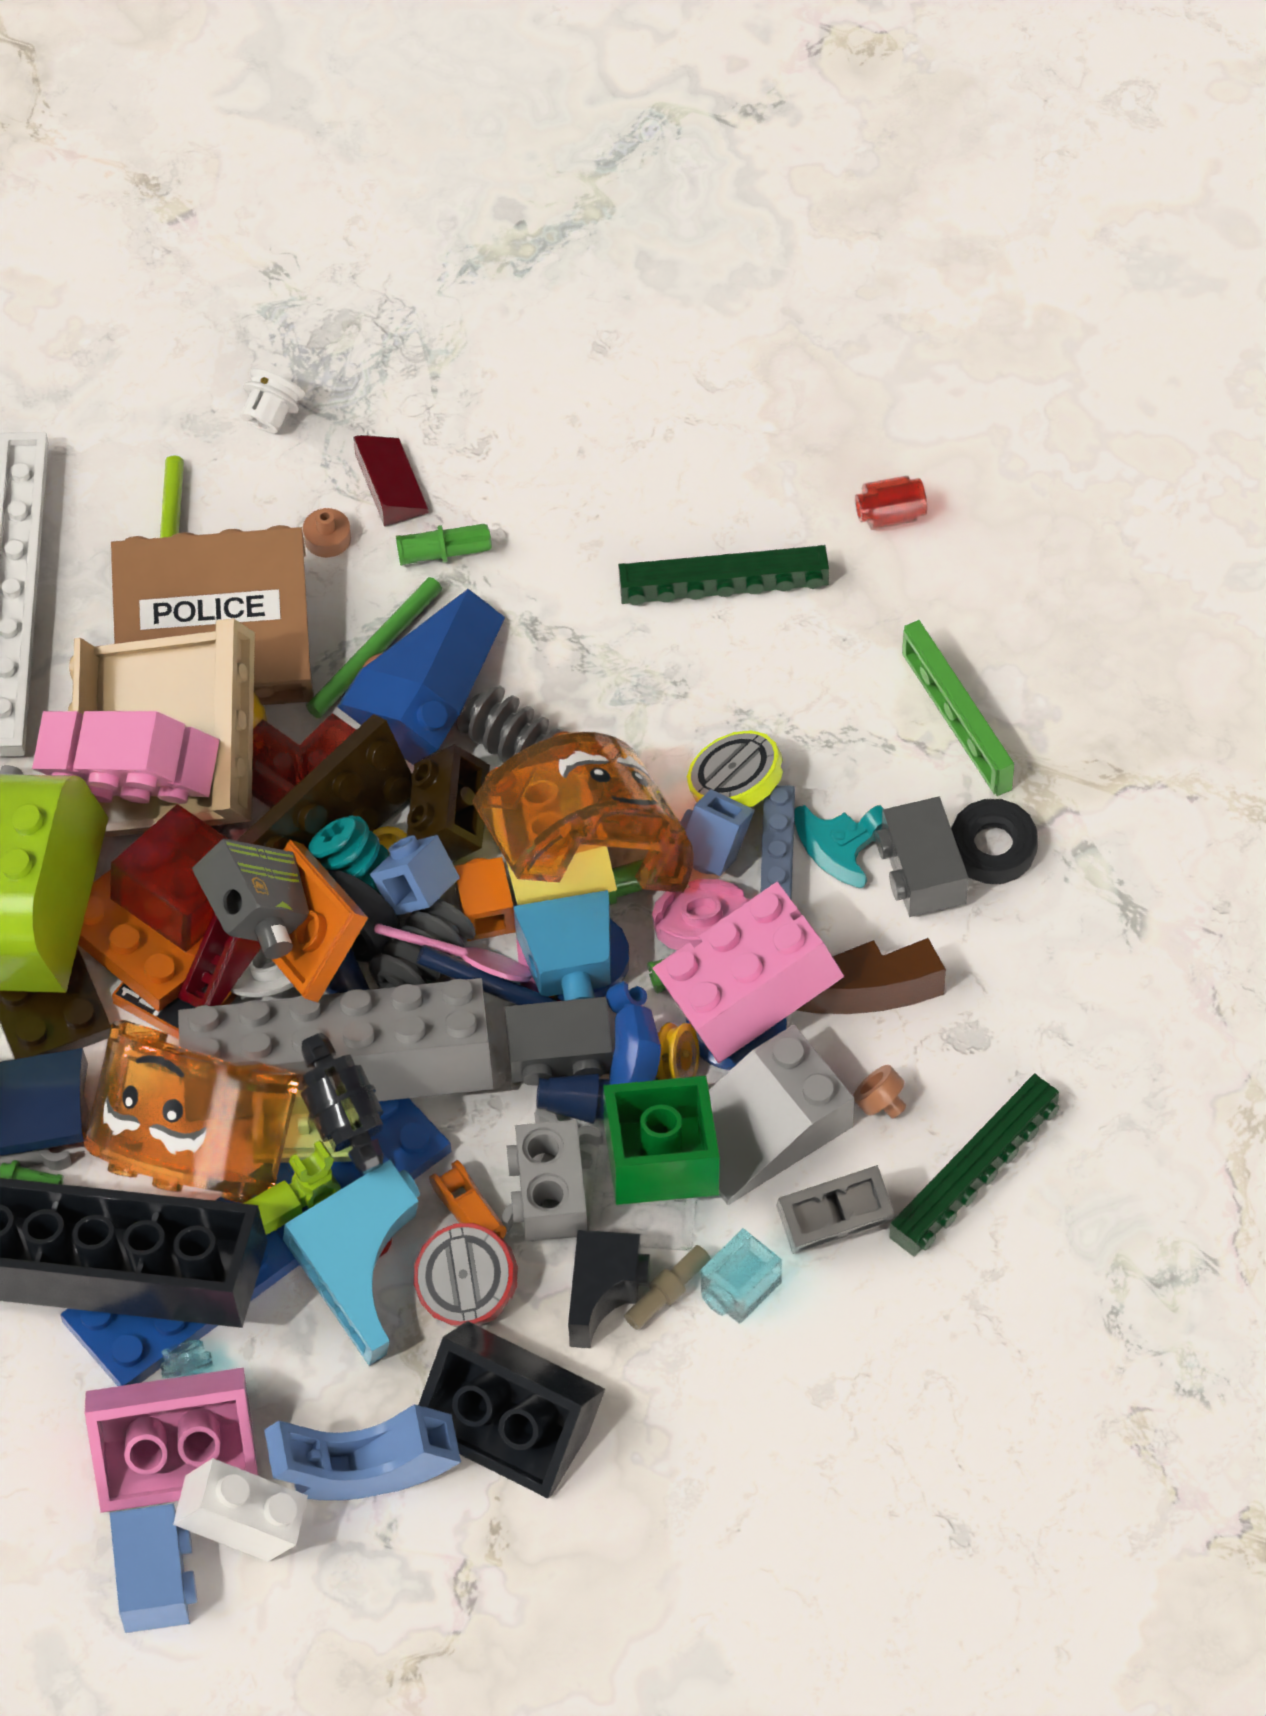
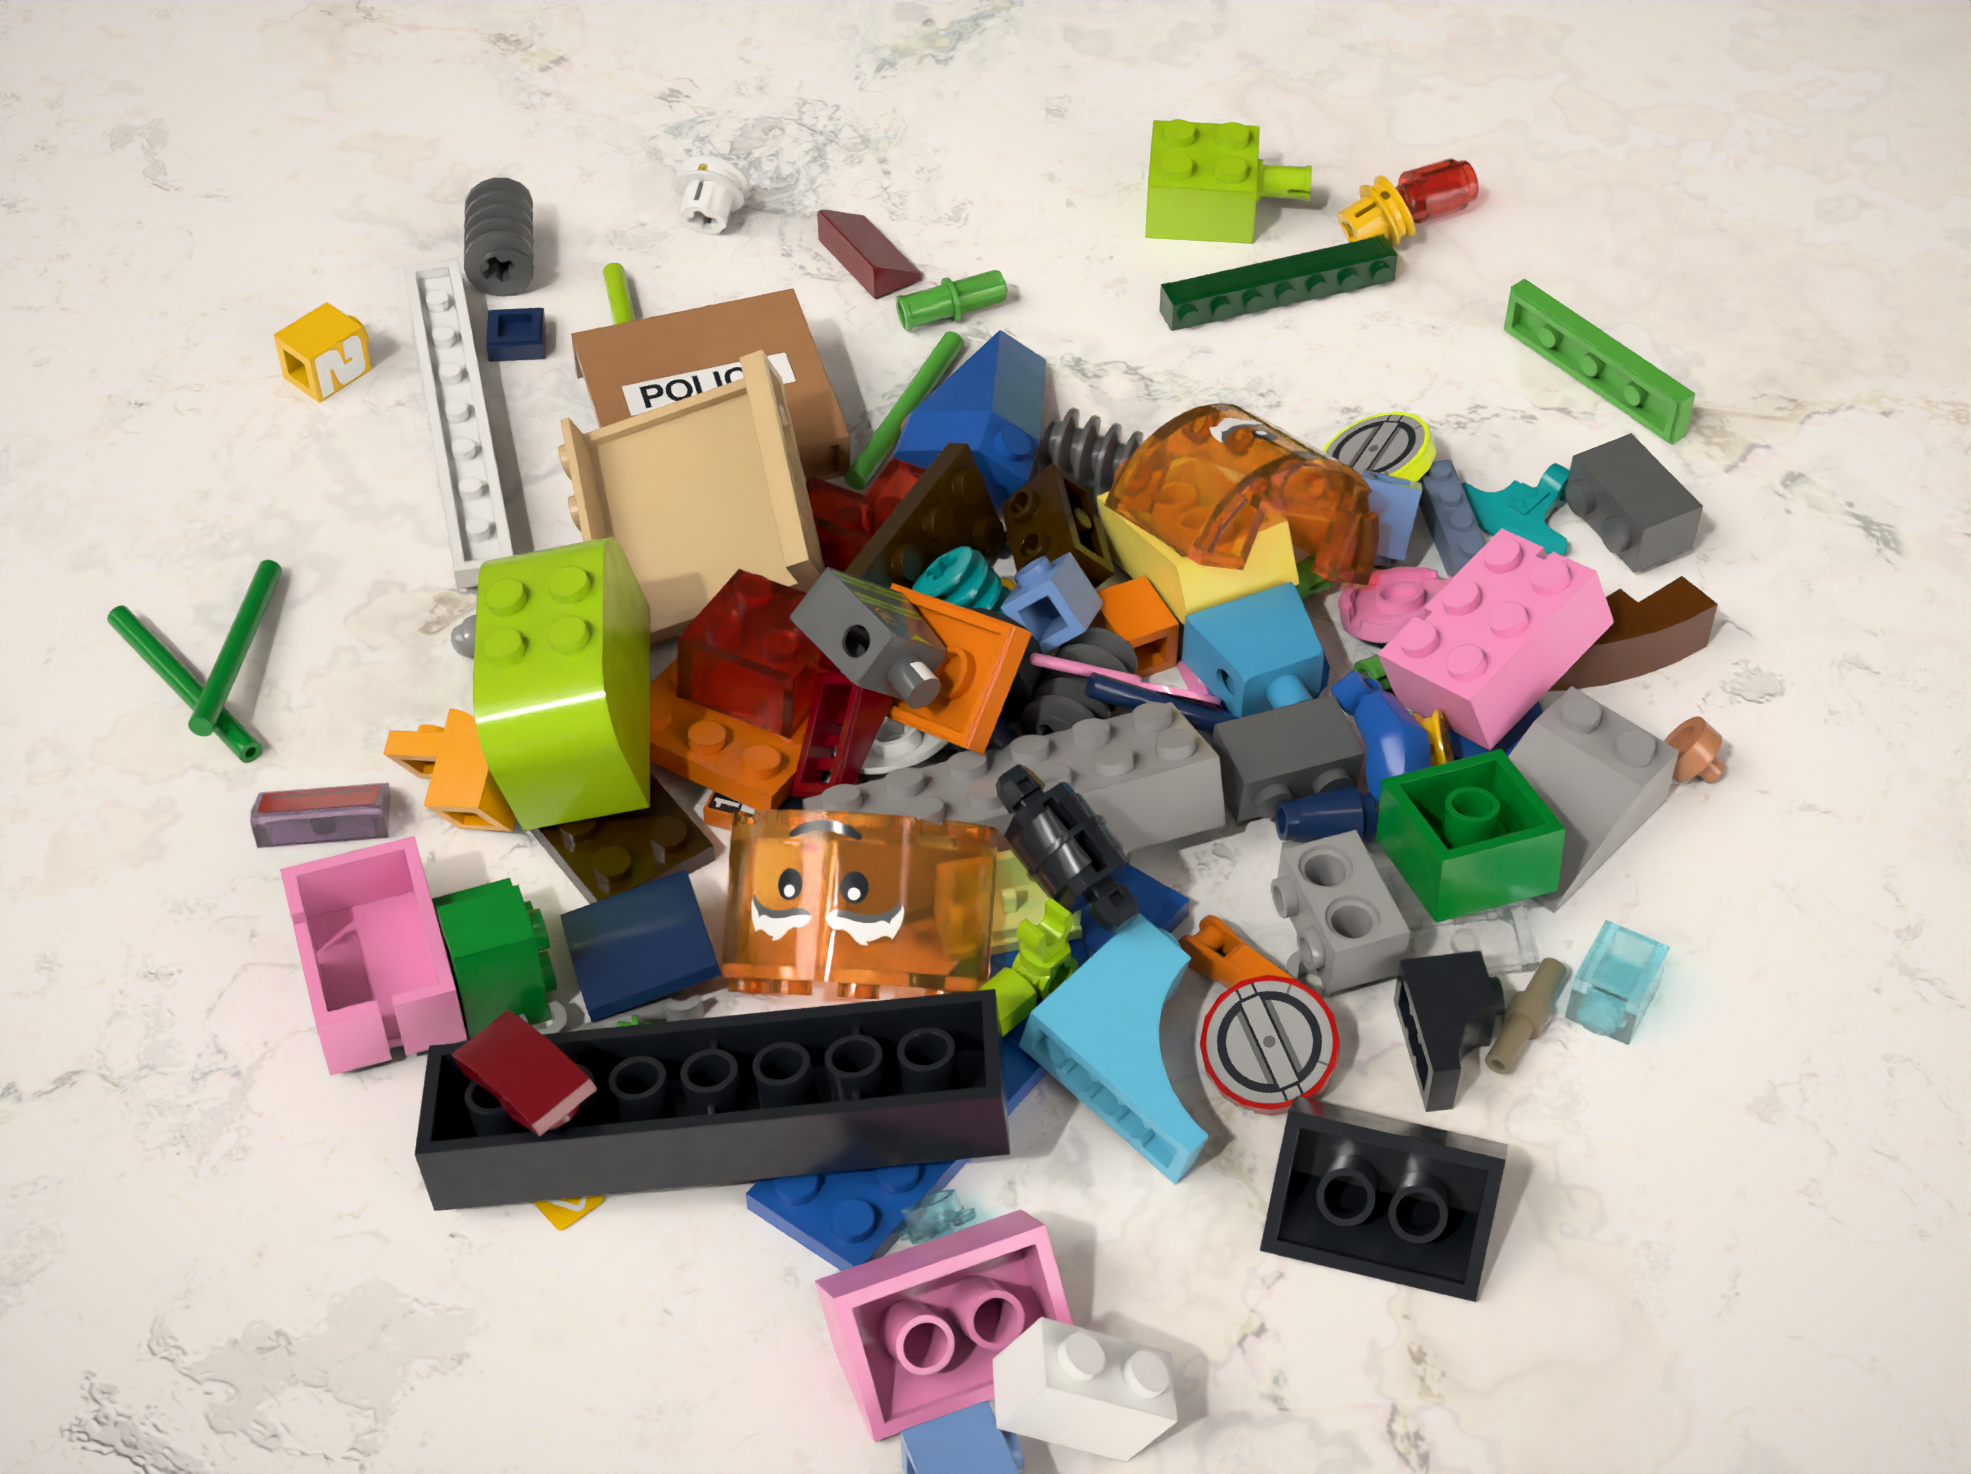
camera: 15 degrees left, 10 degrees down
(79, 513) = (516, 334): none -> dark blue tile
(84, 414) = (499, 236): none -> dark grey piece
(127, 754) = (672, 512): bright pink piece -> none
(326, 532) = (819, 307): nougat tile -> none
(364, 1461) = (1230, 1296): medium blue arch -> none
(697, 460) = (1209, 181): none -> lime brick
(826, 523) = (1377, 213): none -> yellow piece
(835, 1209) = (1705, 881): dark grey brick -> none
(974, 1165) = (1835, 814): dark green piece -> none
(1003, 815) = (1712, 462): black tyre -> none

